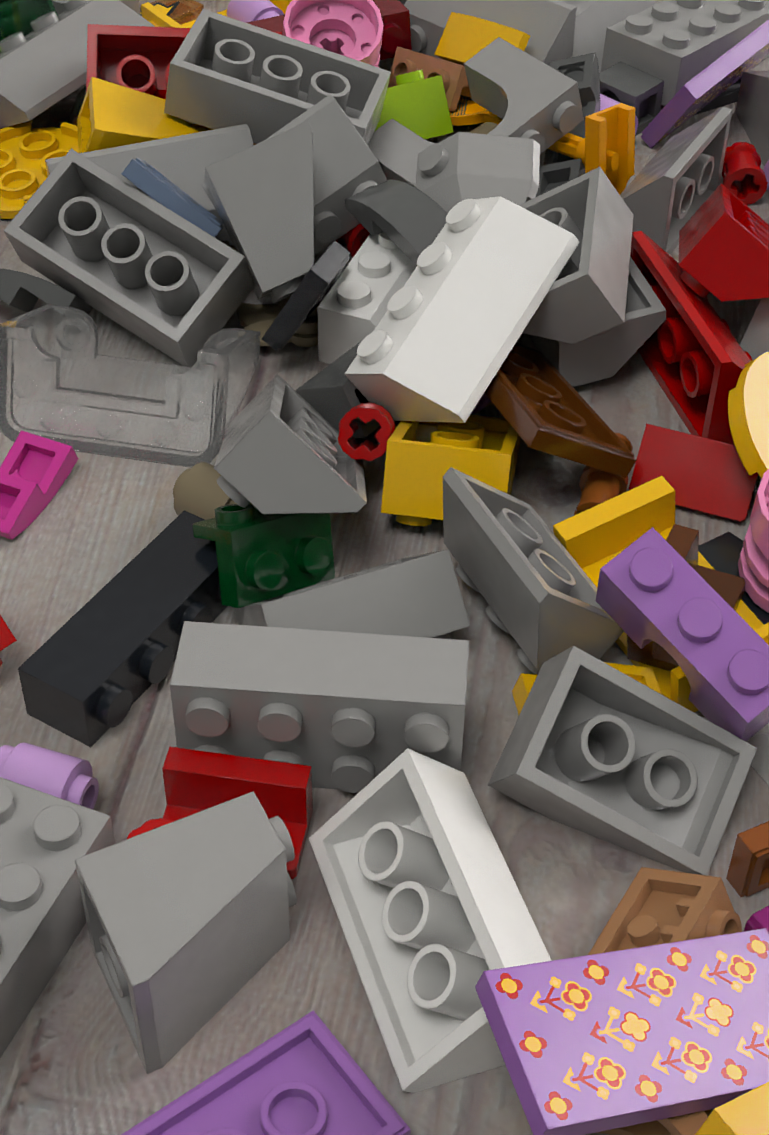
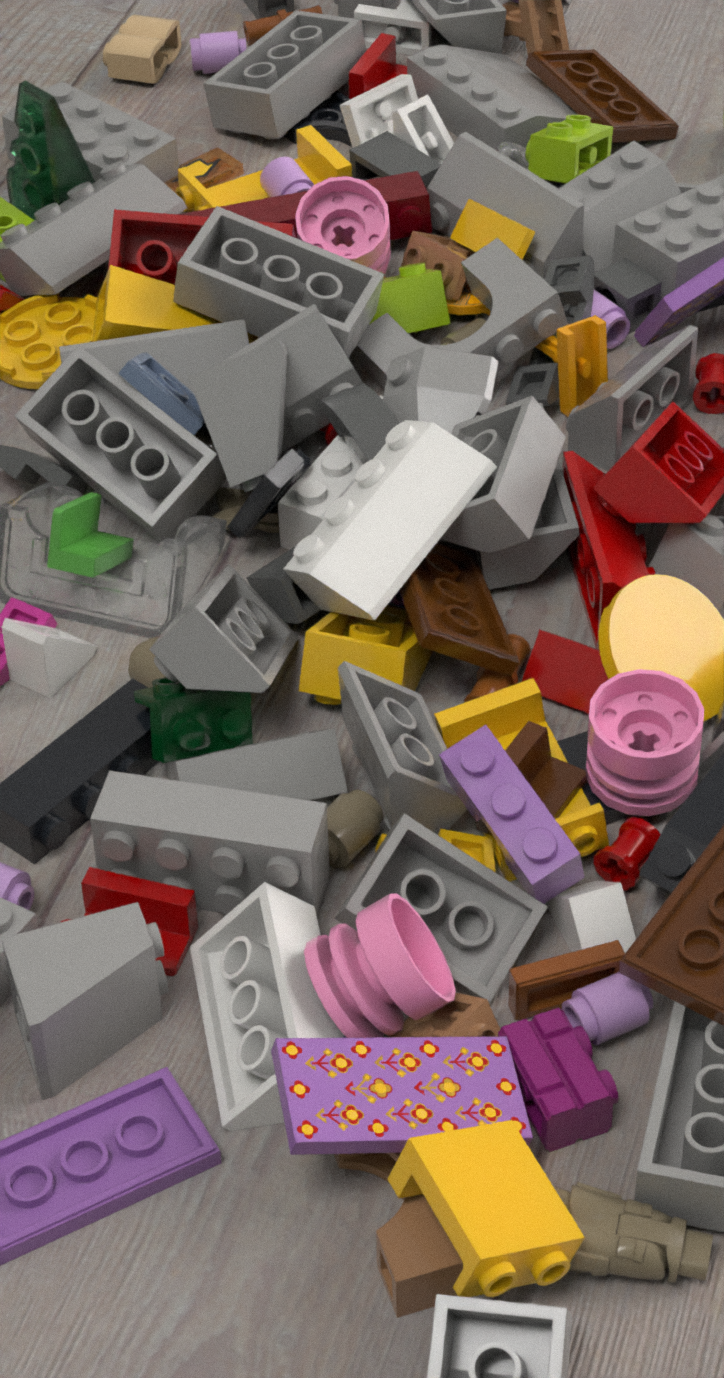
camera: 10 degrees right, 0 degrees up
(66, 495) = (43, 655): none -> white slope
(91, 366) = (77, 543): none -> bright green panel
(349, 427) = (284, 611): red bush -> none
(489, 665) = (352, 824): none -> dark tan brick
(580, 856) = (379, 970): none -> bright pink wheel

